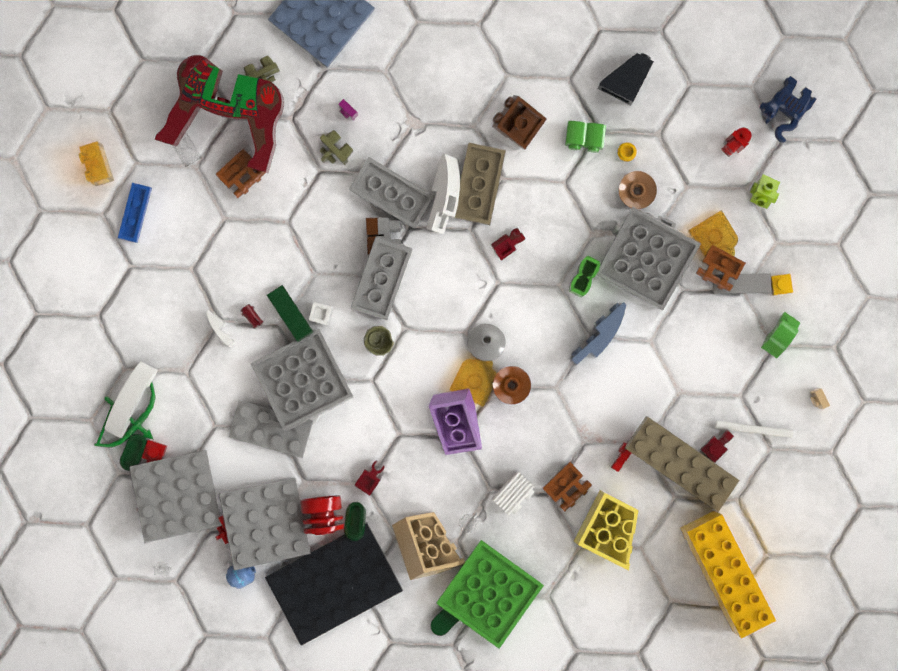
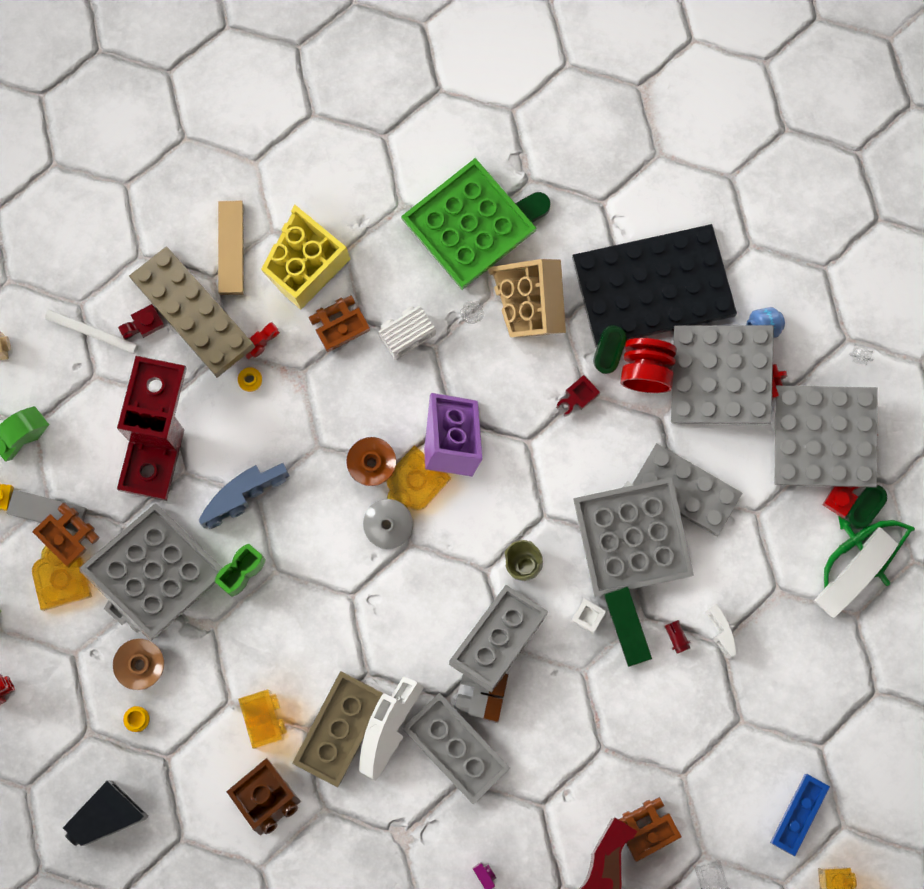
camera: 170 degrees left, 10 degrees down
(330, 141) = (519, 839): olive hips -> none
(506, 244) = (327, 639): dark red plate -> none
(536, 175) = (262, 719): none -> clear yellow brick
(585, 136) = (183, 755): bright green brick -> none
(615, 424) = (252, 386): none -> yellow plate
(668, 525) = (230, 248): none -> tan tile
(682, 362) = (151, 427): none -> dark red bracket
(728, 574) = (177, 169): yellow brick -> none

